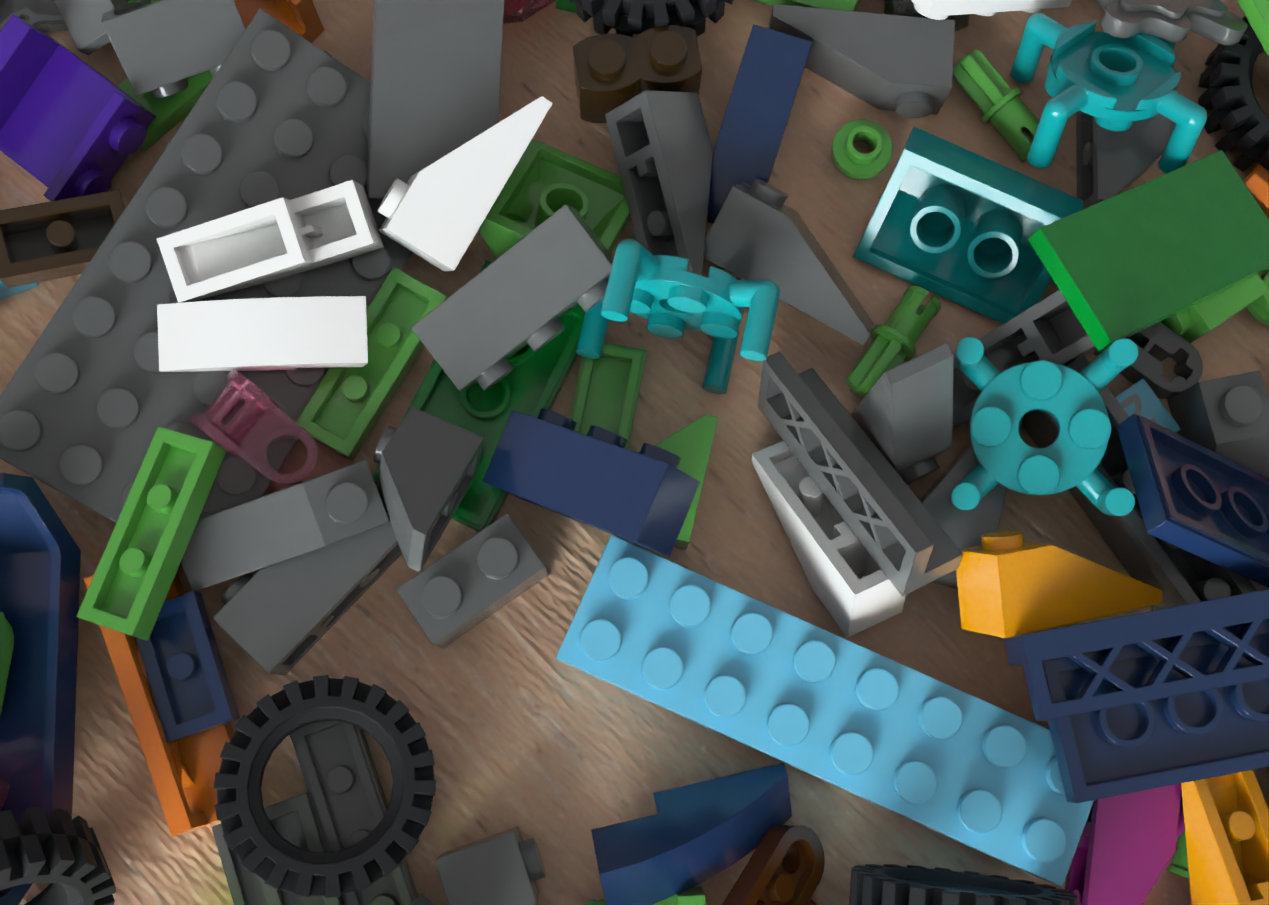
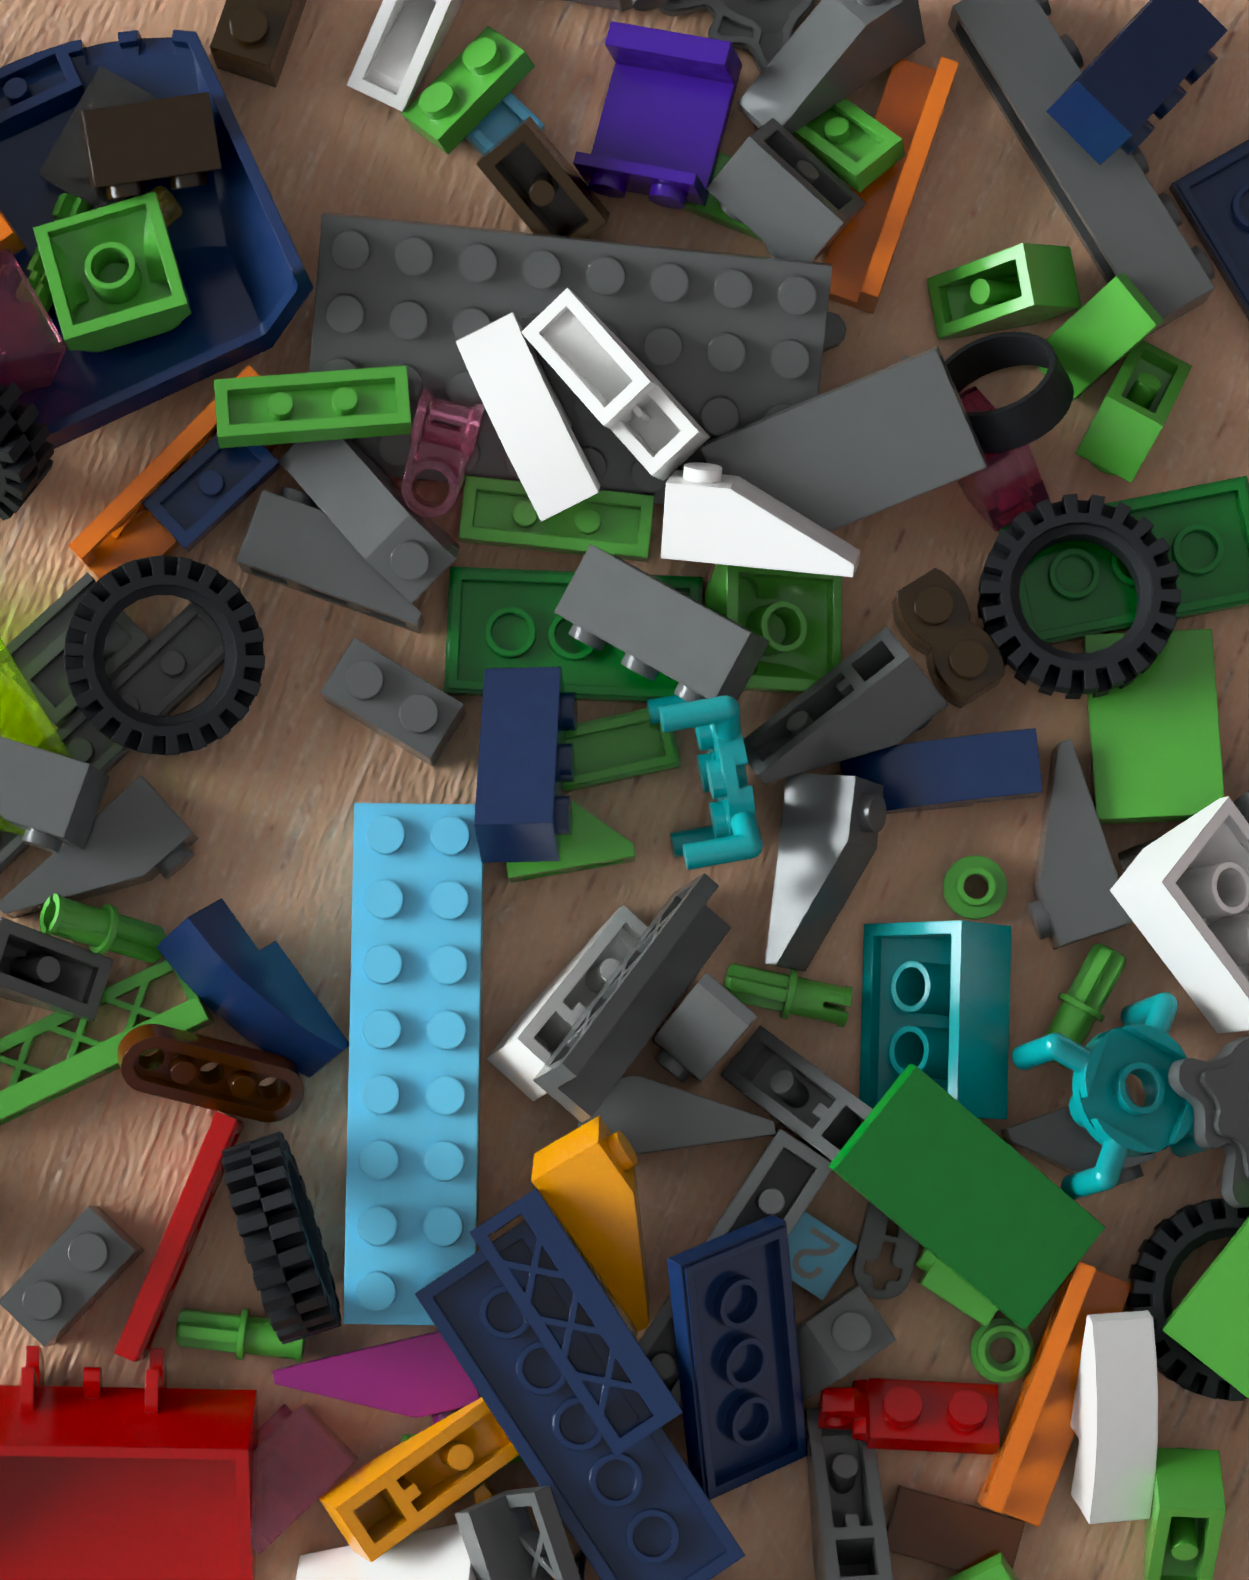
camera: 70 degrees right, 5 degrees up
(424, 479) = (462, 617): dark grey slope -> none
(1080, 421) = (711, 1122): teal plate -> none

